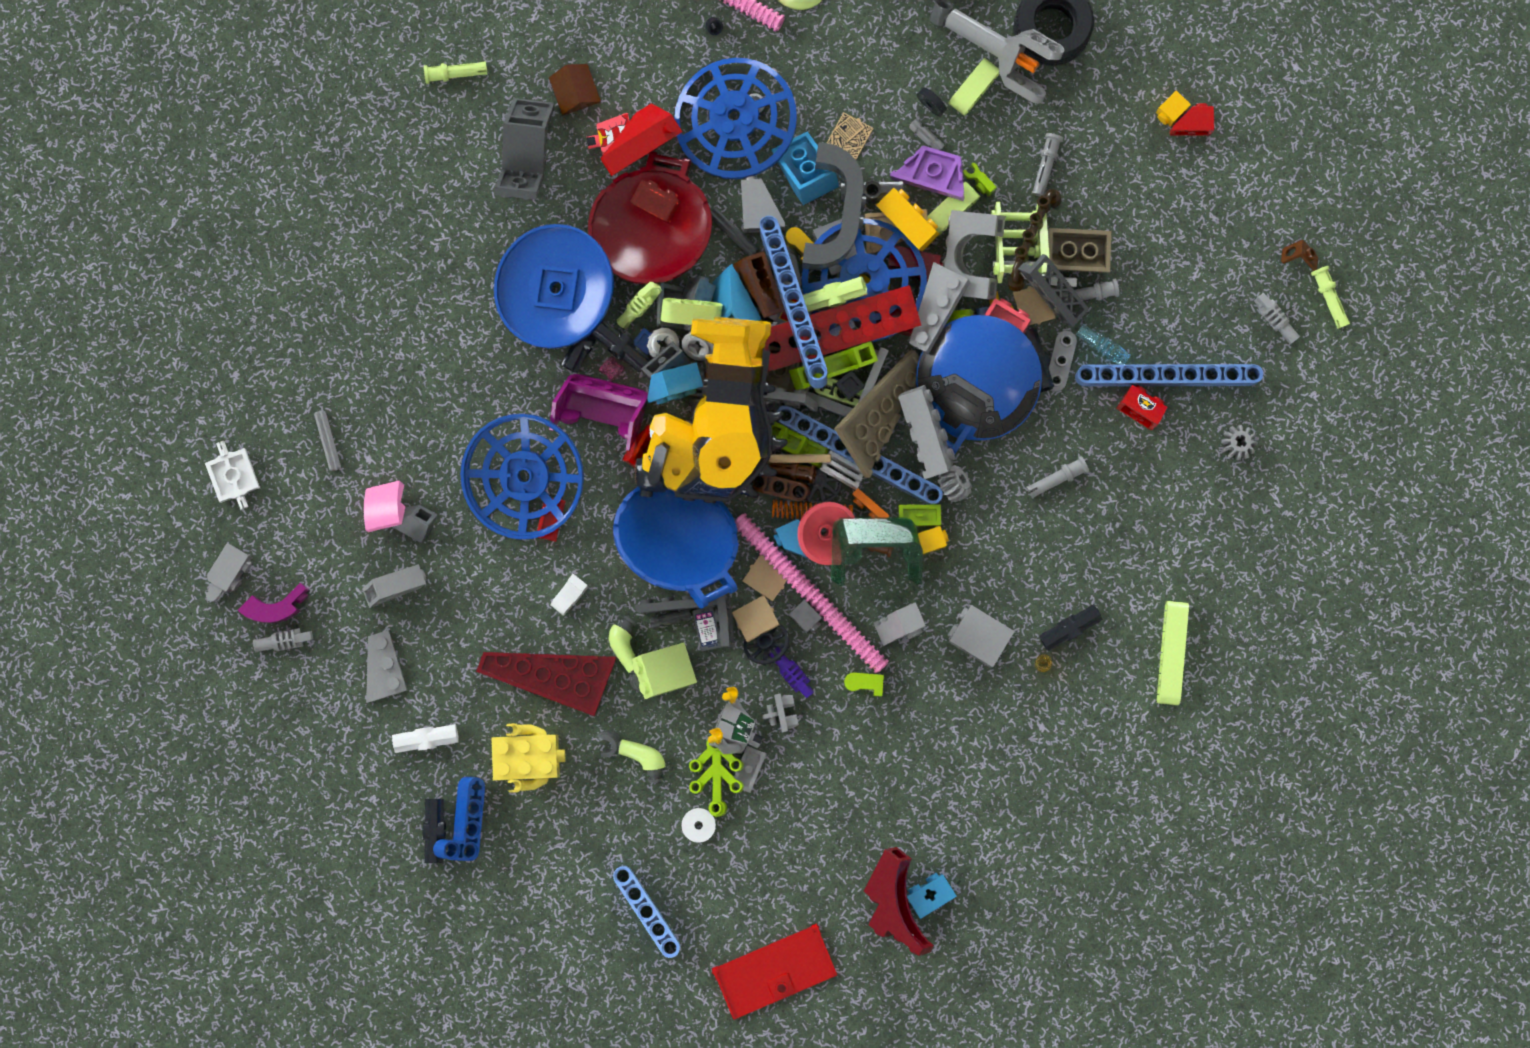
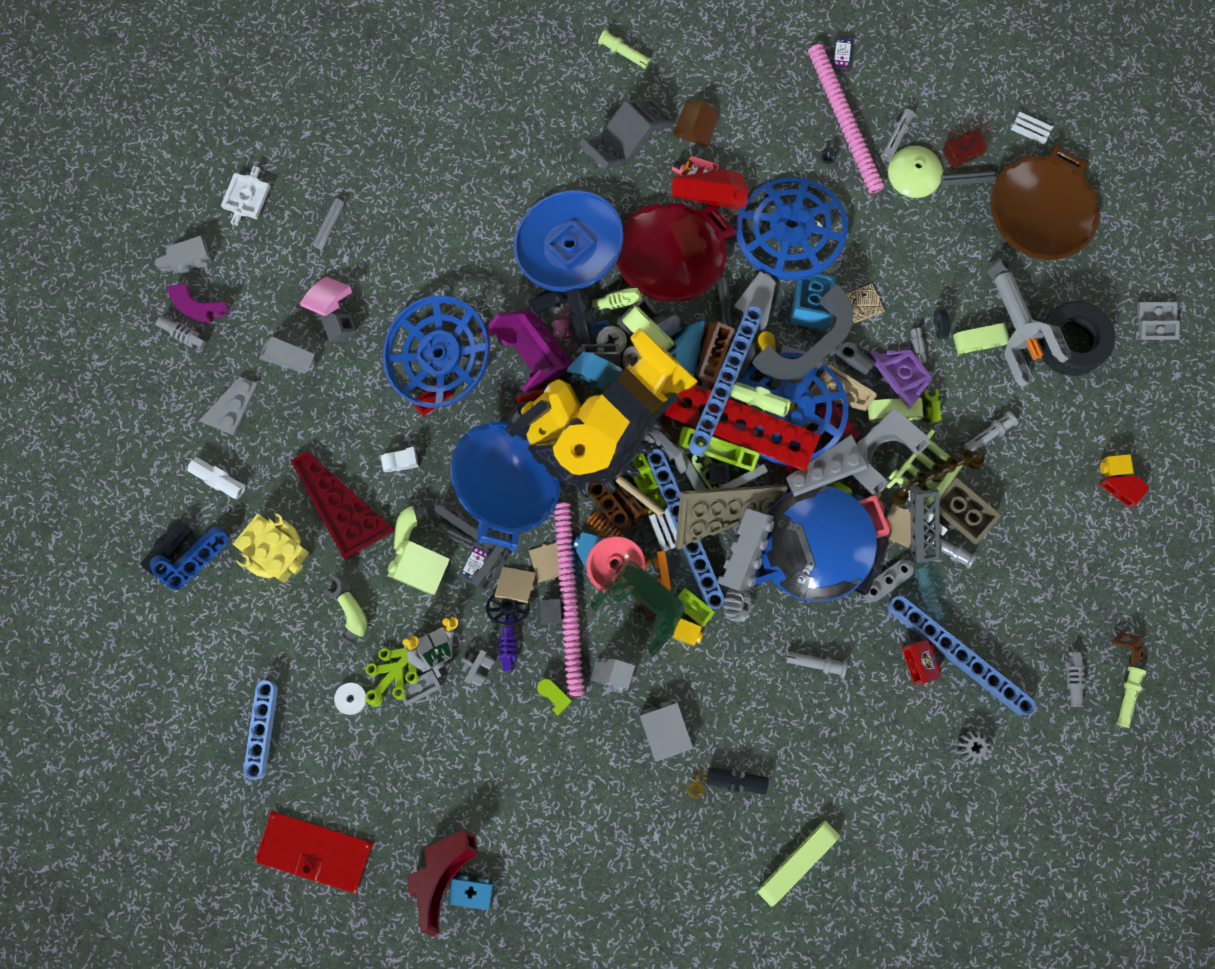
camera: 40 degrees right, 5 degrees down
(908, 218) = (858, 389): yellow brick -> none

